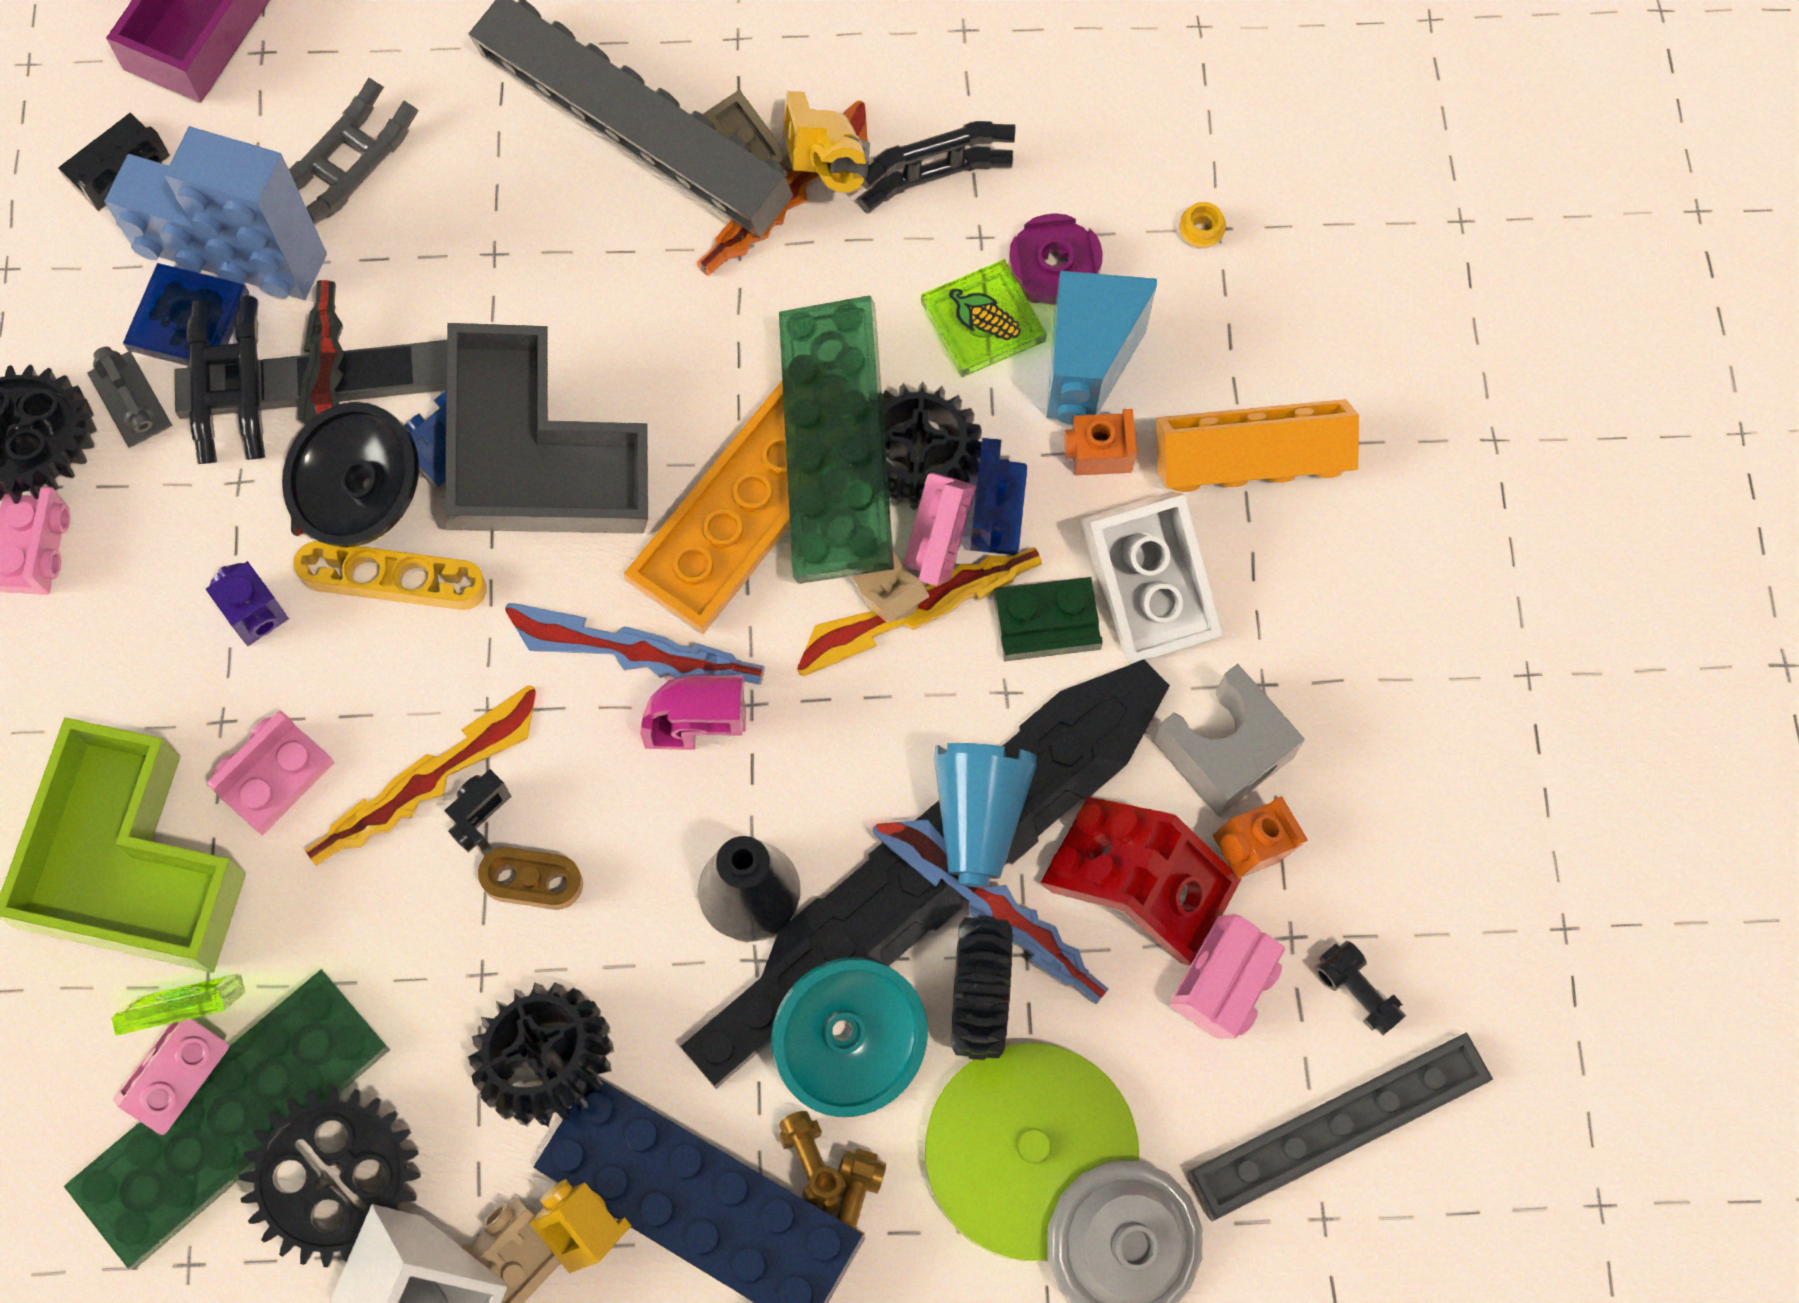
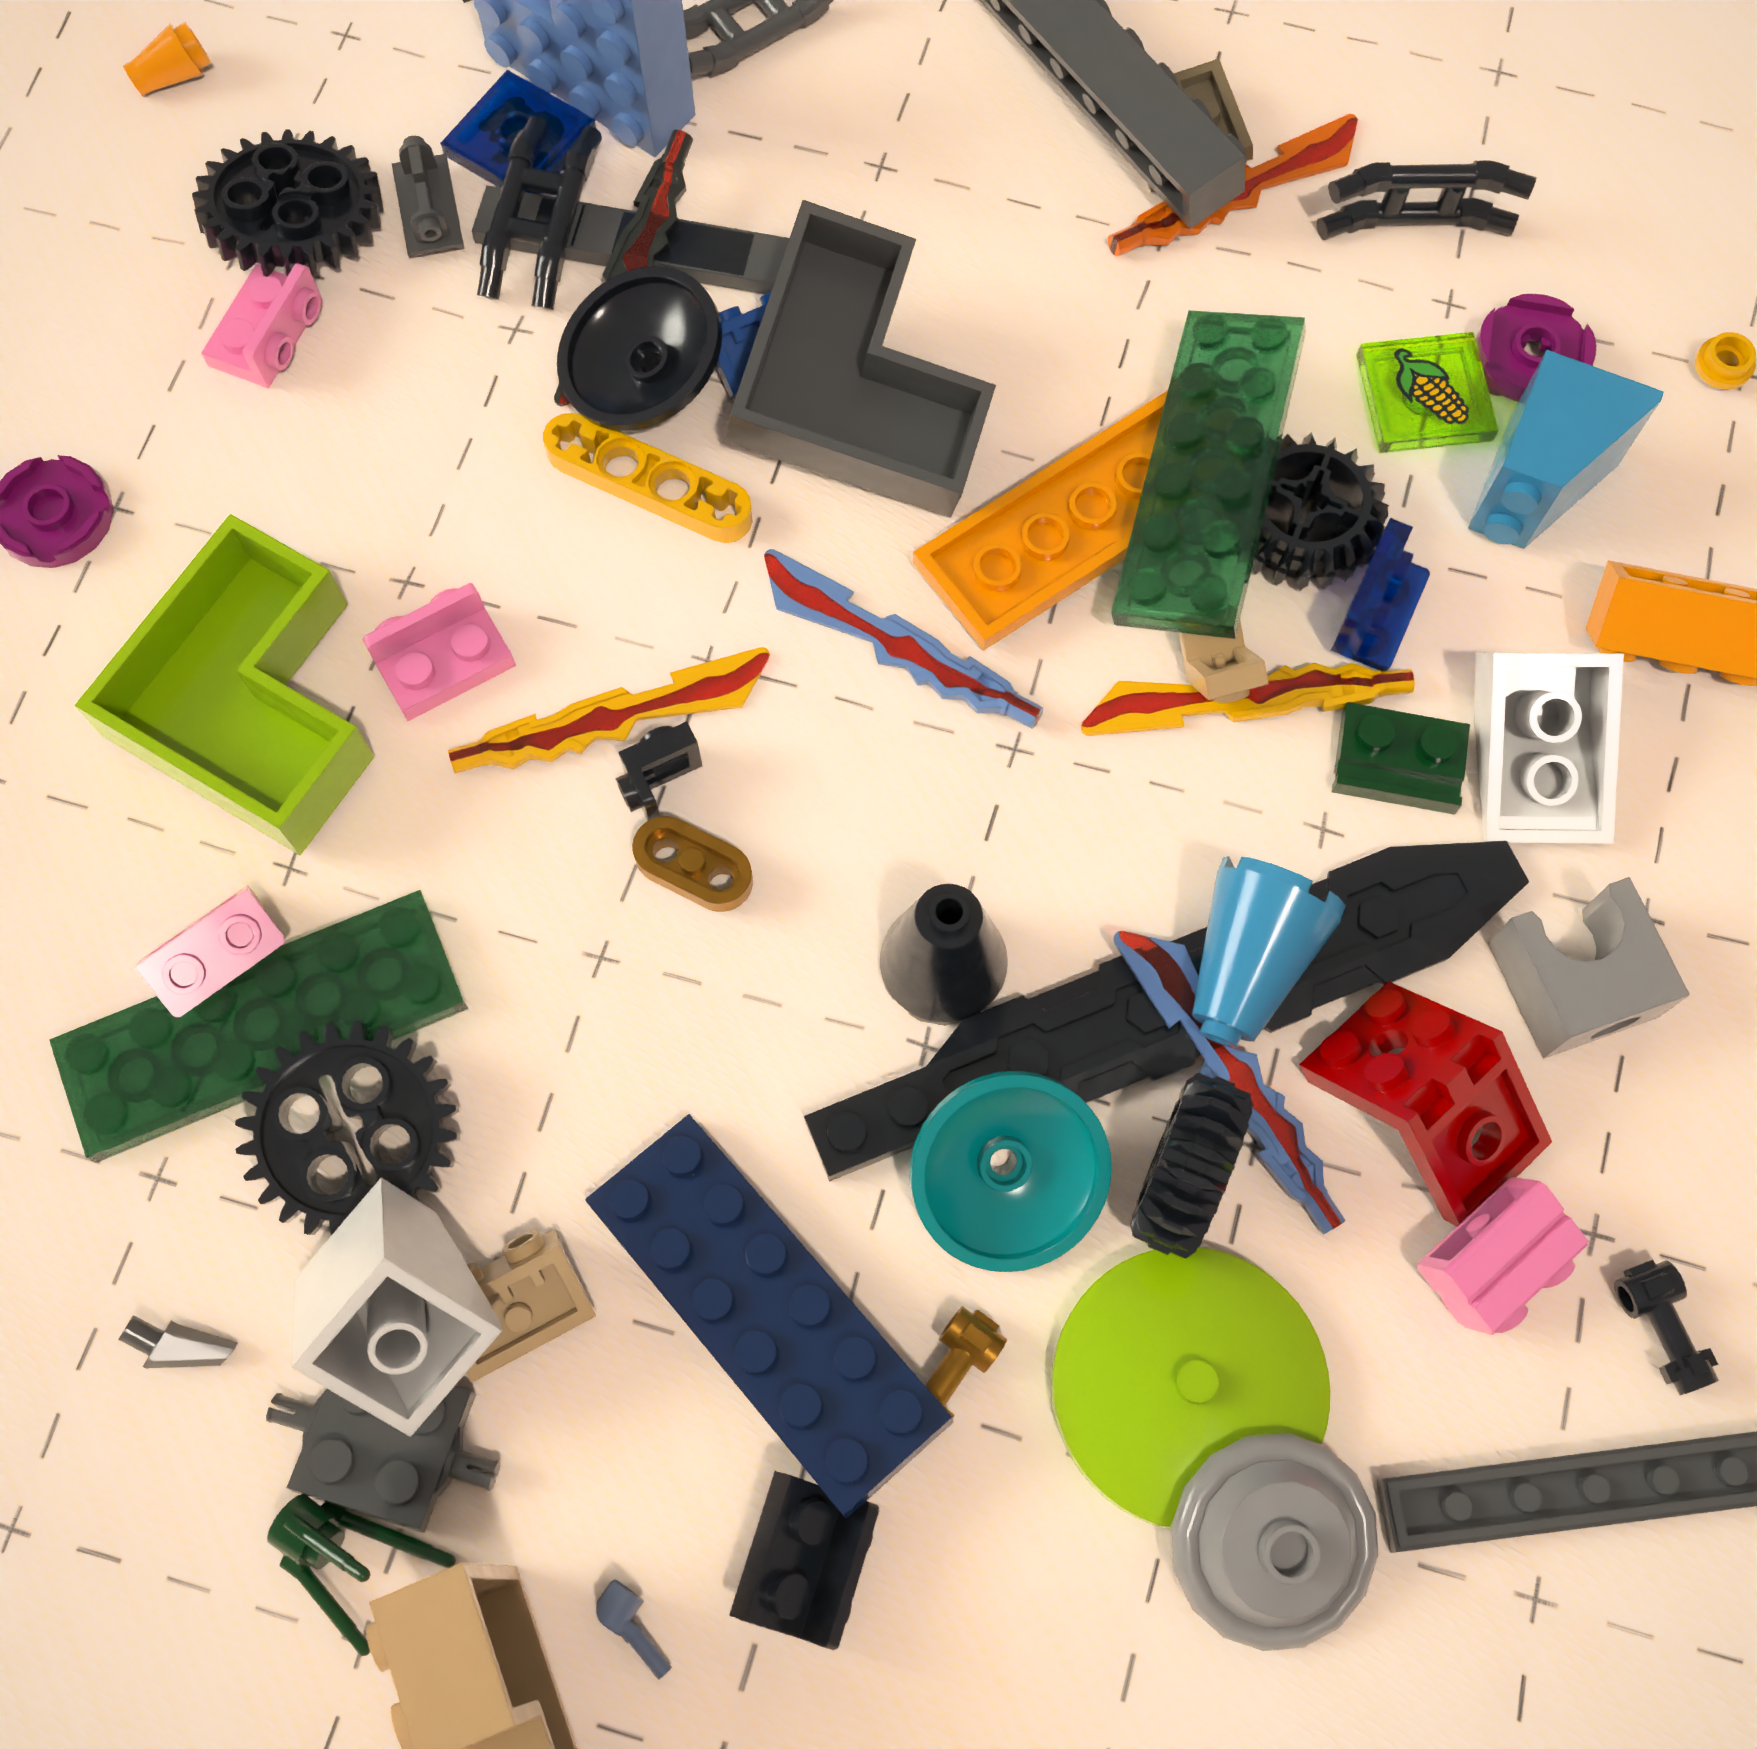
camera: 20 degrees right, 0 degrees up
(178, 1004) = (243, 874): clear neon green tile -> none
(246, 602) = (476, 456): dark purple brick -> none
(569, 1056) = (669, 1080): black gear -> none
(577, 1225) = (612, 1286): yellow brick -> none
(694, 707) = (946, 725): dark pink brick -> none
(824, 144) = (1300, 139): yellow plate -> none
(824, 1182) = (924, 1337): pearl gold bar -> none
(939, 528) = (1304, 608): bright pink bracket -> none
(1102, 457) = (1530, 574): orange brick -> none
(1259, 838) = (1593, 1098): orange brick -> none

